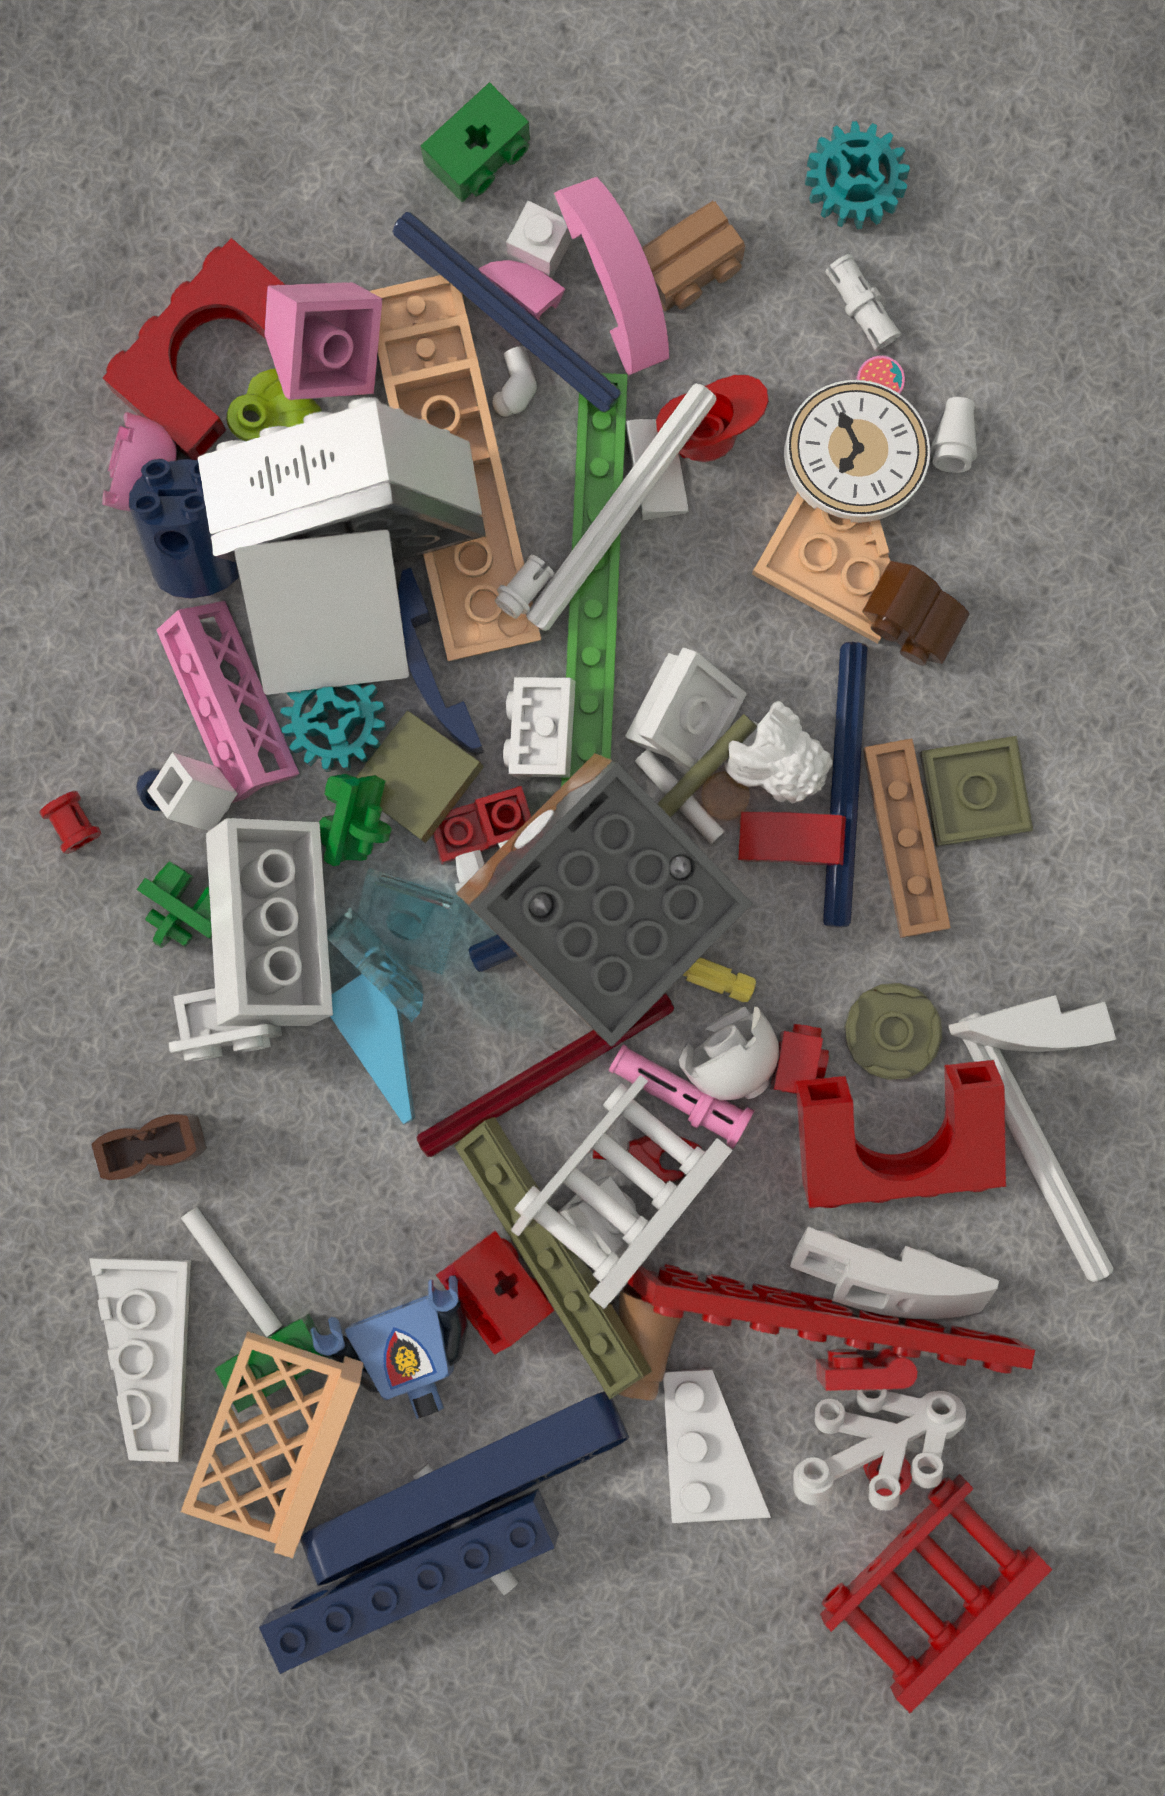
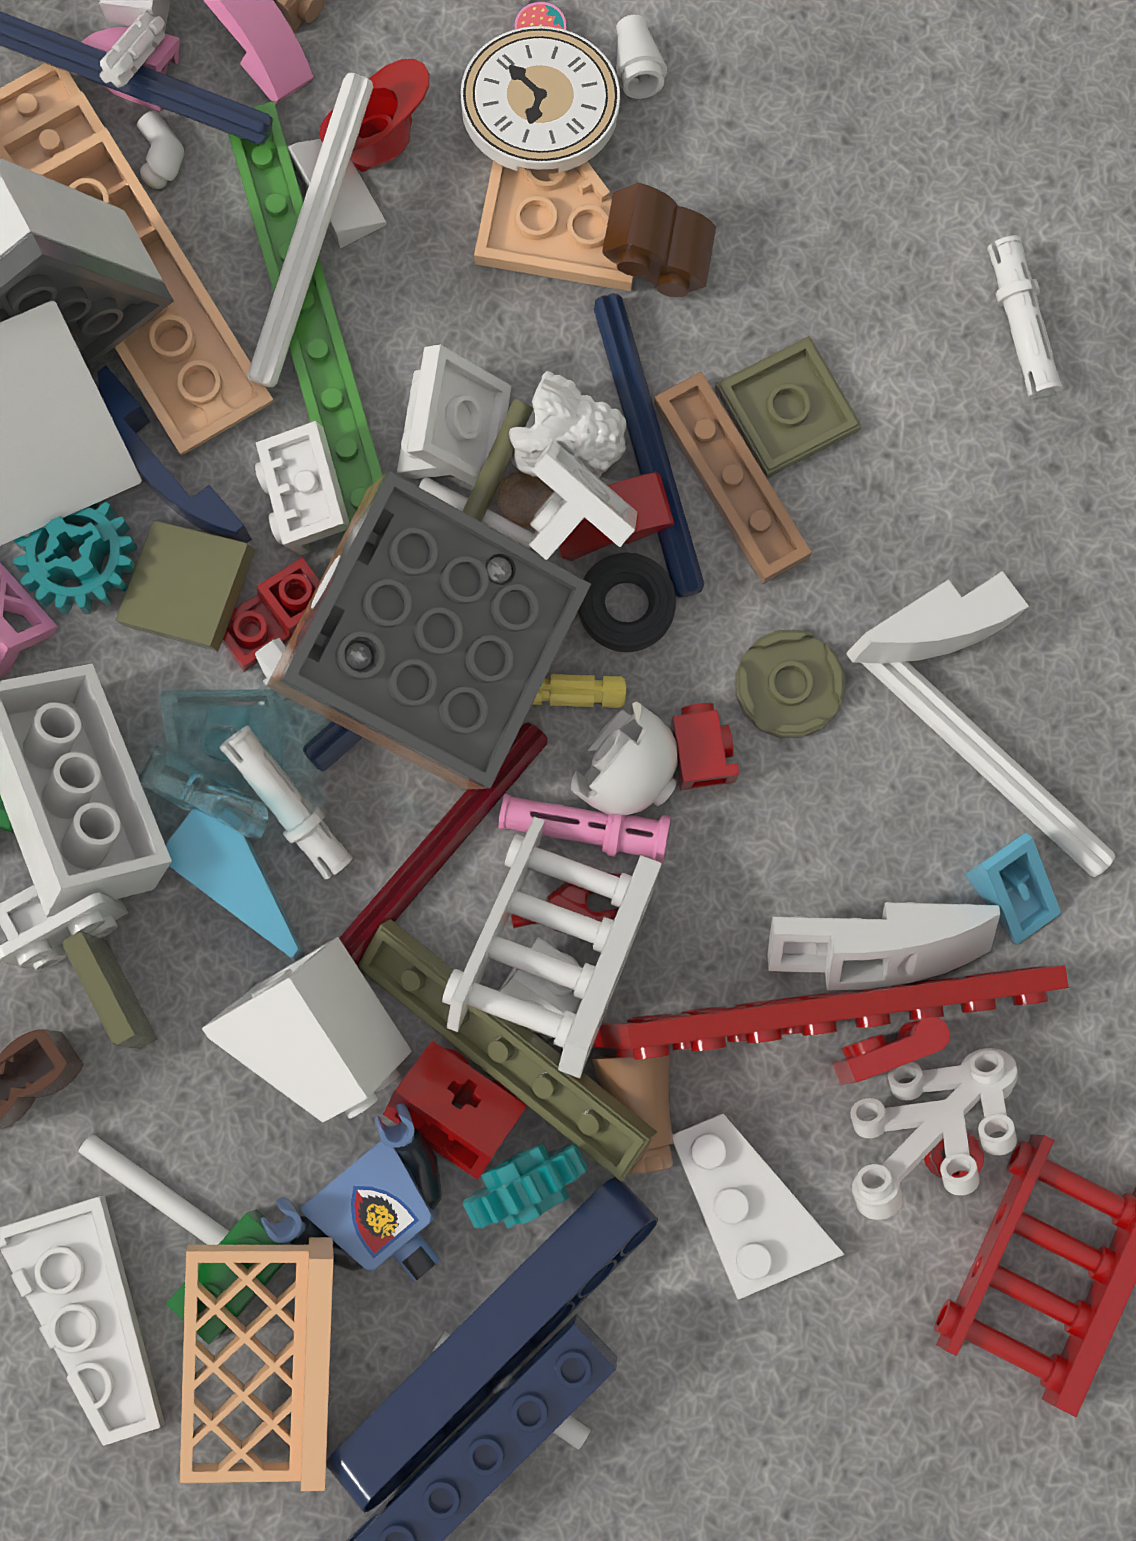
camera: 25 degrees left, 5 degrees down
(248, 1101) = (109, 990): none -> olive tile
(356, 818) = (131, 649): green hips -> none
(402, 1193) = (315, 1034): none -> white slope
(447, 1010) = (294, 812): none -> white pin
(521, 295) = (132, 49): none -> white axle
(523, 587) = (230, 357): white pin -> none
(531, 1375) = (525, 1186): none -> teal gear
(764, 826) = (576, 496): none -> white bracket
(810, 916) = (647, 575): none -> black tyre
(959, 1158) = (911, 786): red arch -> none
(1020, 1267) = (1019, 885): none -> medium azure slope

